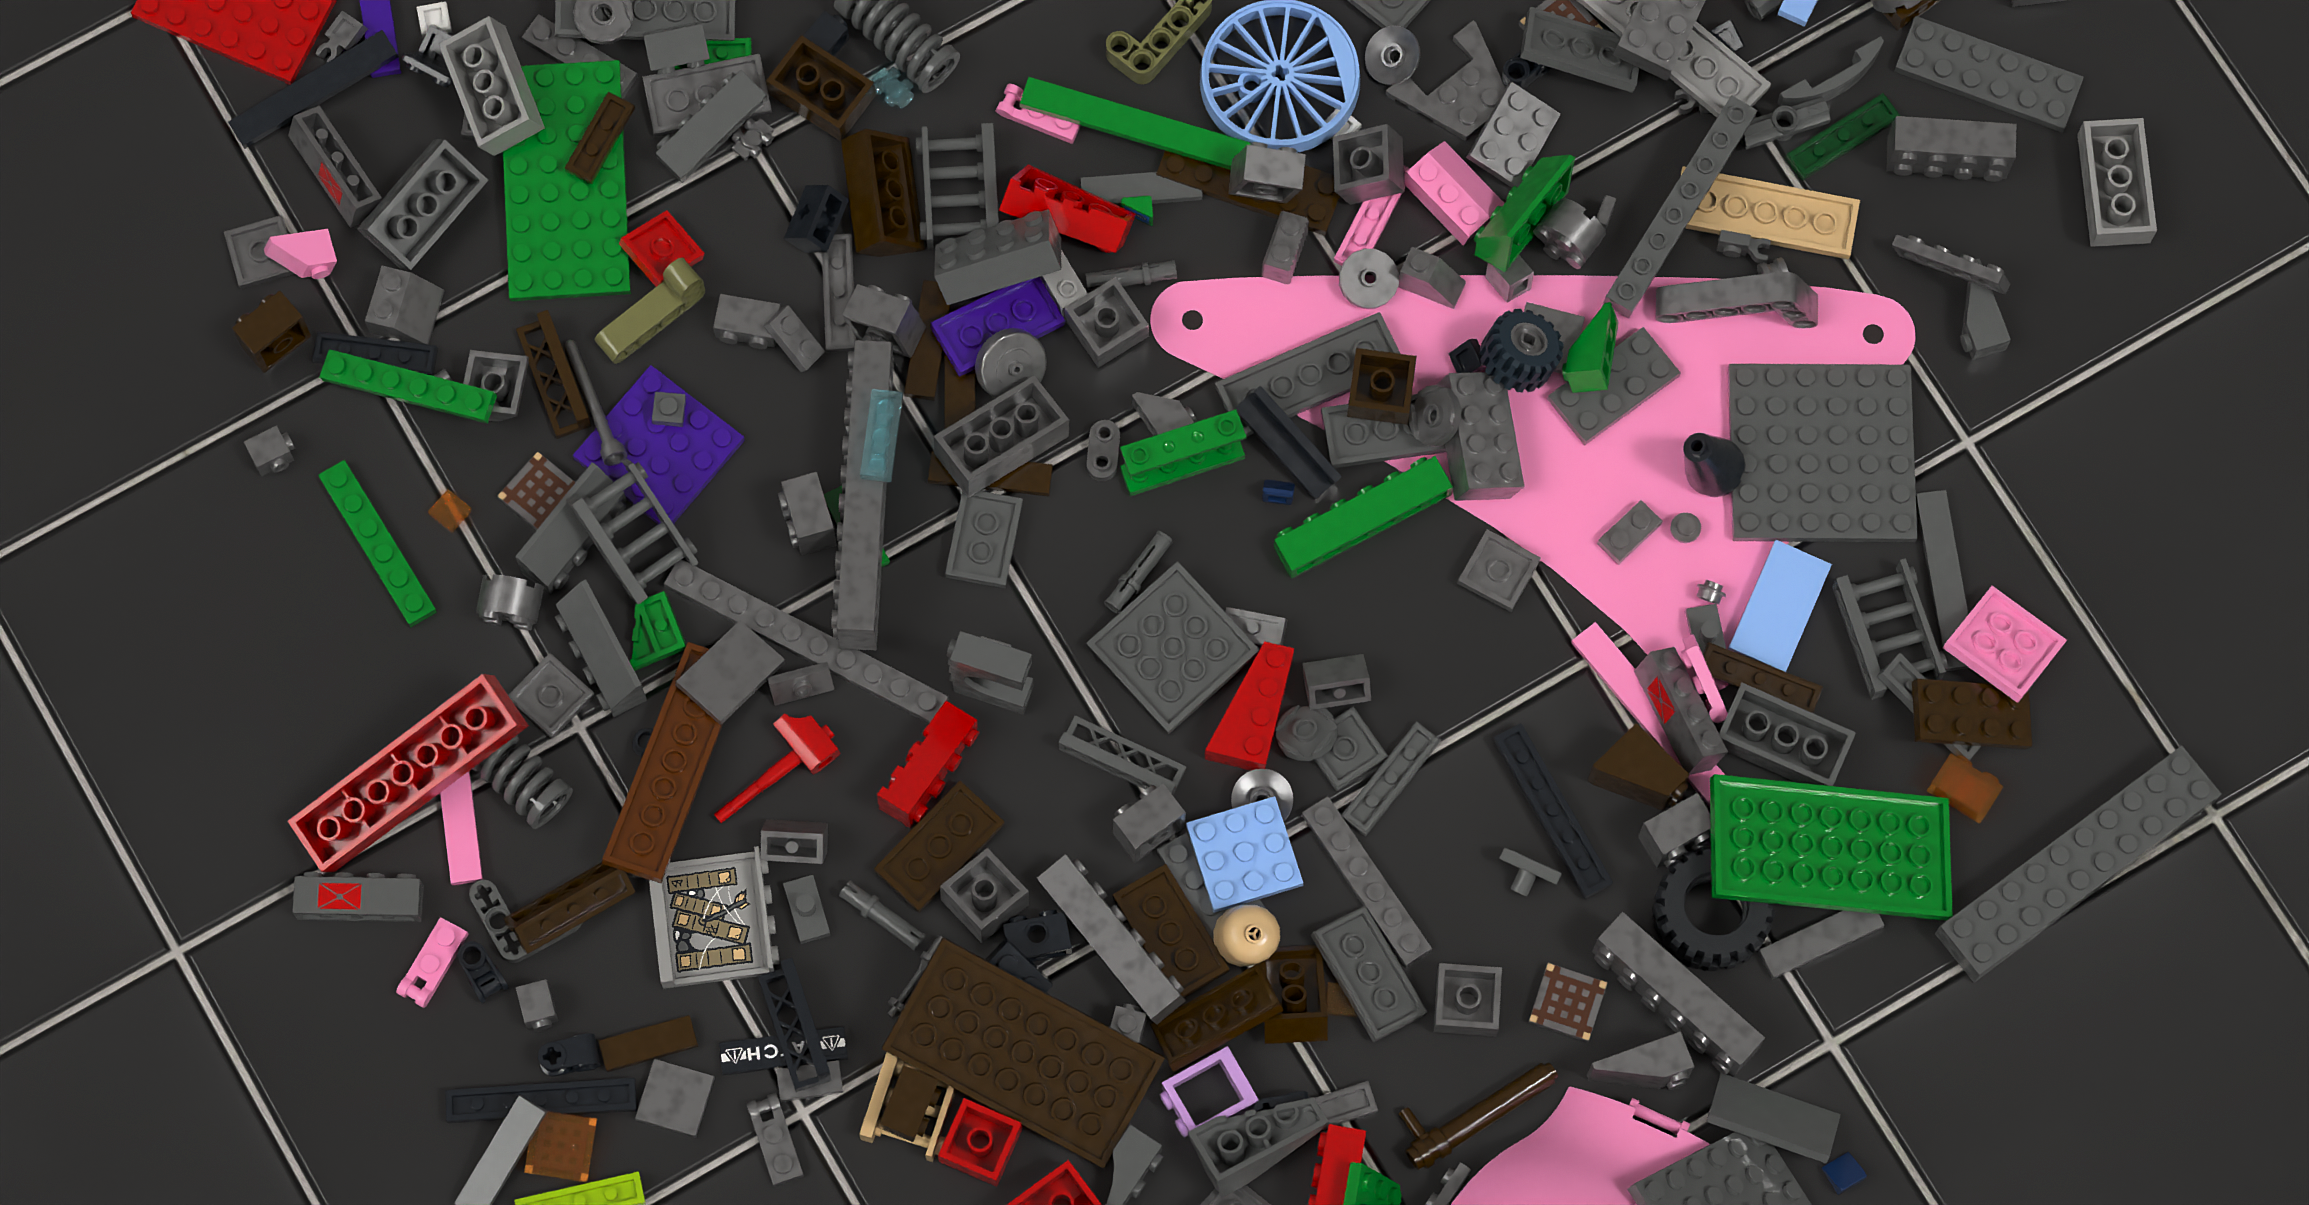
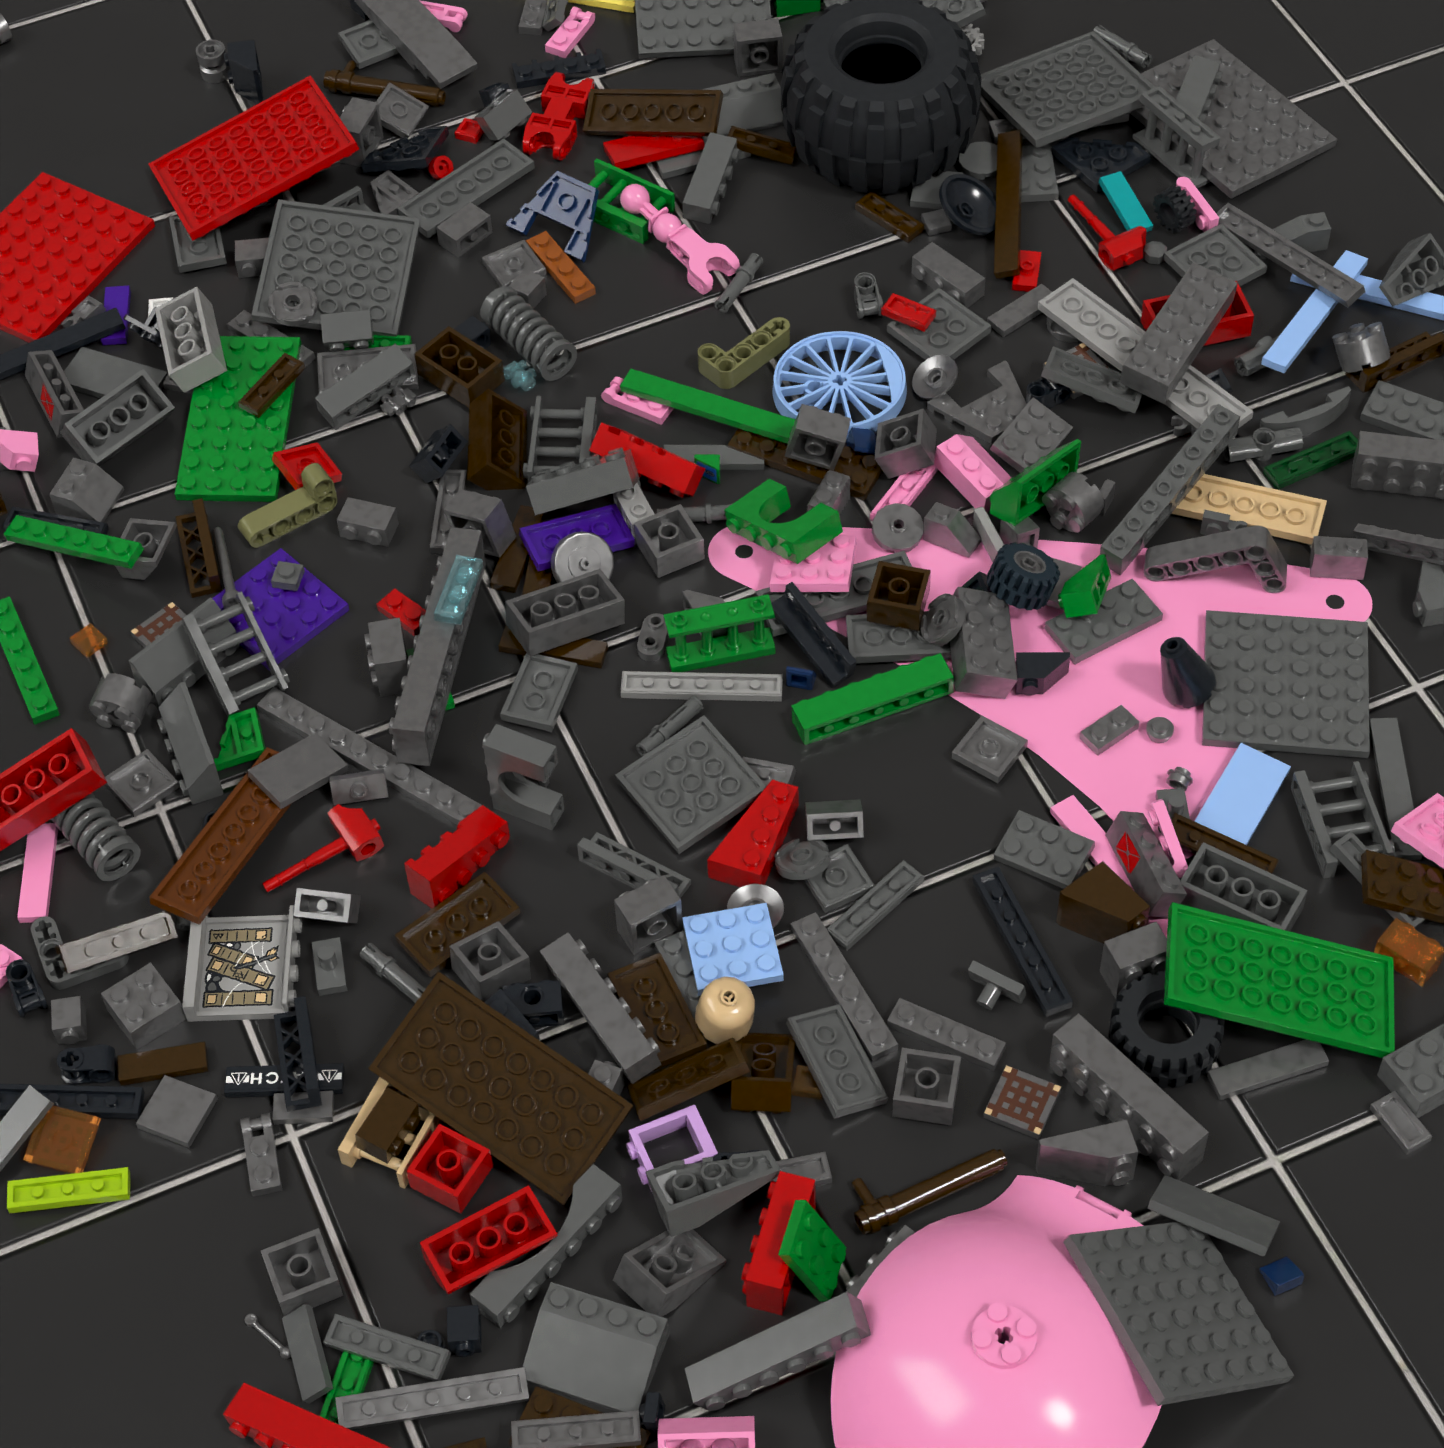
camera: 10 degrees right, 20 degrees down
(393, 127) = (100, 373): none -> dark grey tile
(615, 980) = (143, 1006): none -> flat silver brick
(794, 338) = (403, 534): flat silver plate -> none
(810, 440) = (400, 606): none -> red plate
(1166, 512) = (701, 685): none -> light grey tile
(1251, 319) = (791, 540): none -> green arch
(1277, 340) = (823, 571): none -> bright pink plate
(1318, 158) = (862, 440): none -> dark blue slope
(1477, 286) = (987, 532): none -> light grey tile
(1481, 929) = (946, 1034): none -> flat silver plate
(1546, 464) = (1039, 671): none -> black slope
(1568, 696) = (1044, 850): none -> dark grey plate
(1875, 280) = (1338, 557): none -> flat silver brick
(1960, 988) = (1400, 1122): none -> flat silver tile

